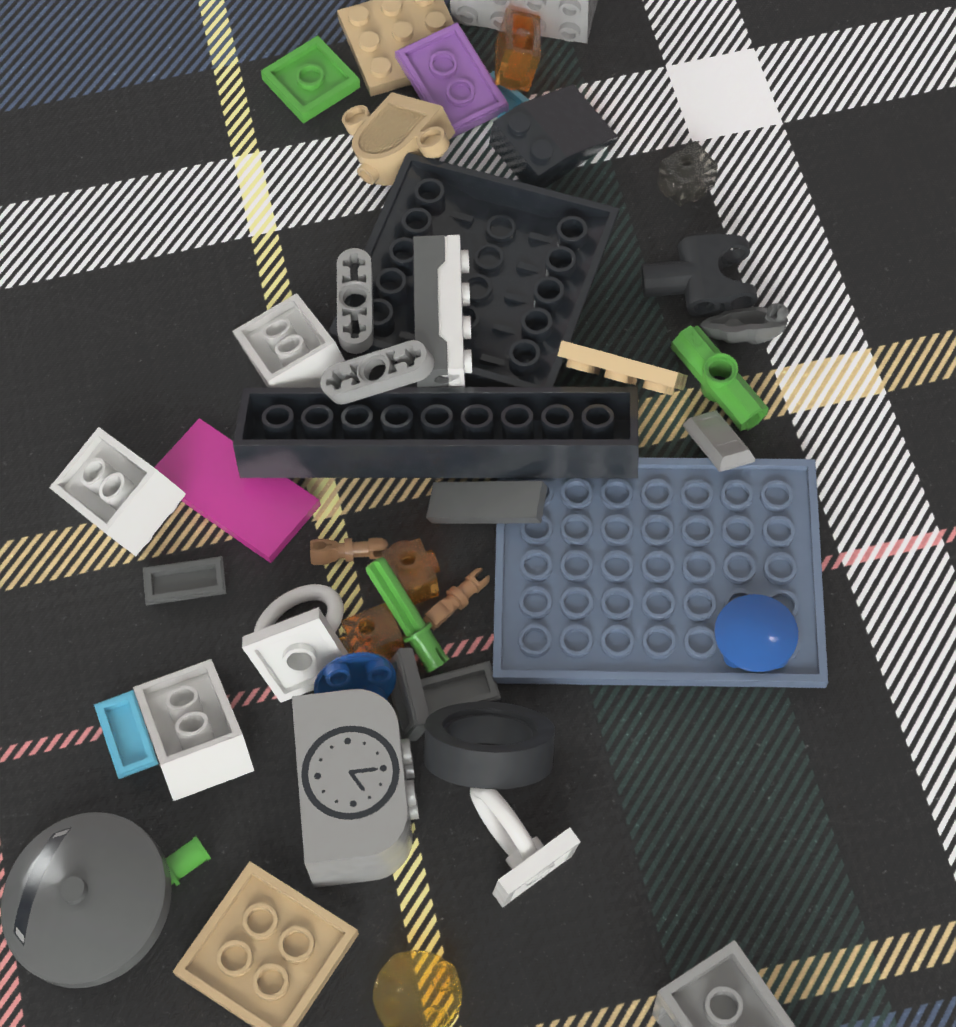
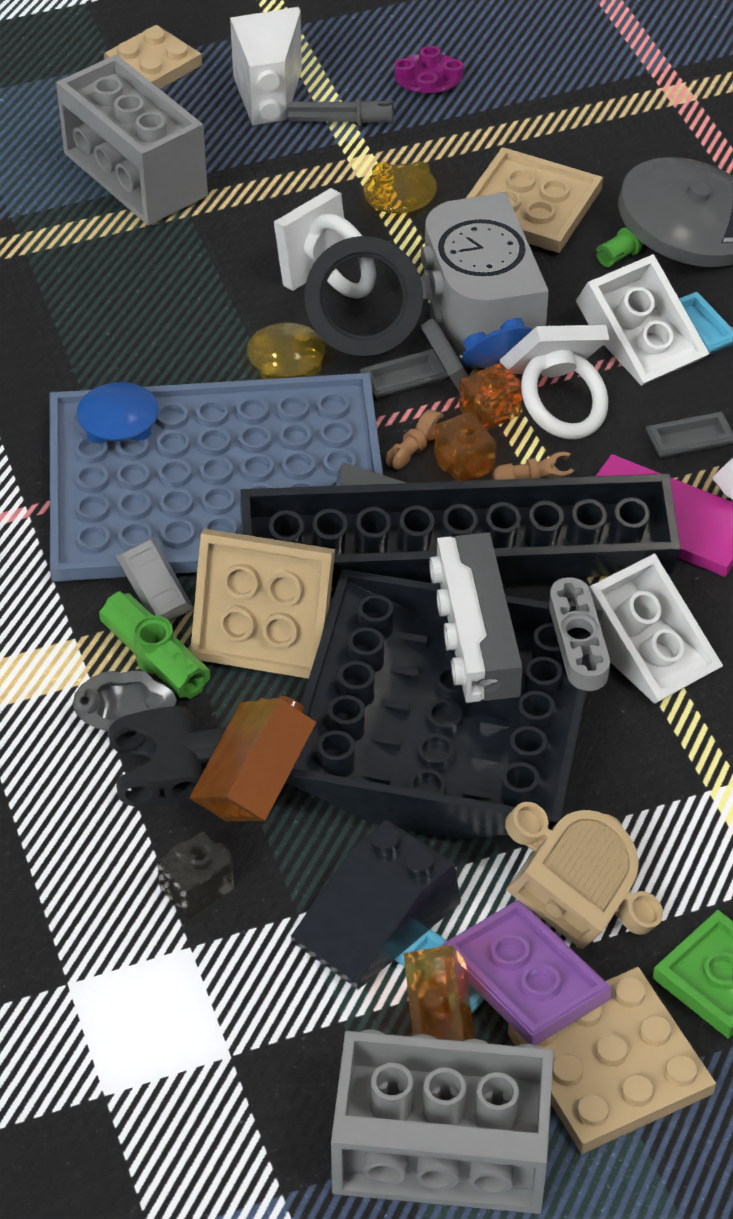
camera: 170 degrees right, 15 degrees down
(393, 377) = (503, 530): light grey beam -> none
(406, 614) = (449, 395): bright green axle -> none
(583, 738) = (286, 350): none -> clear yellow dish
(640, 221) = (253, 759): none -> dark orange brick

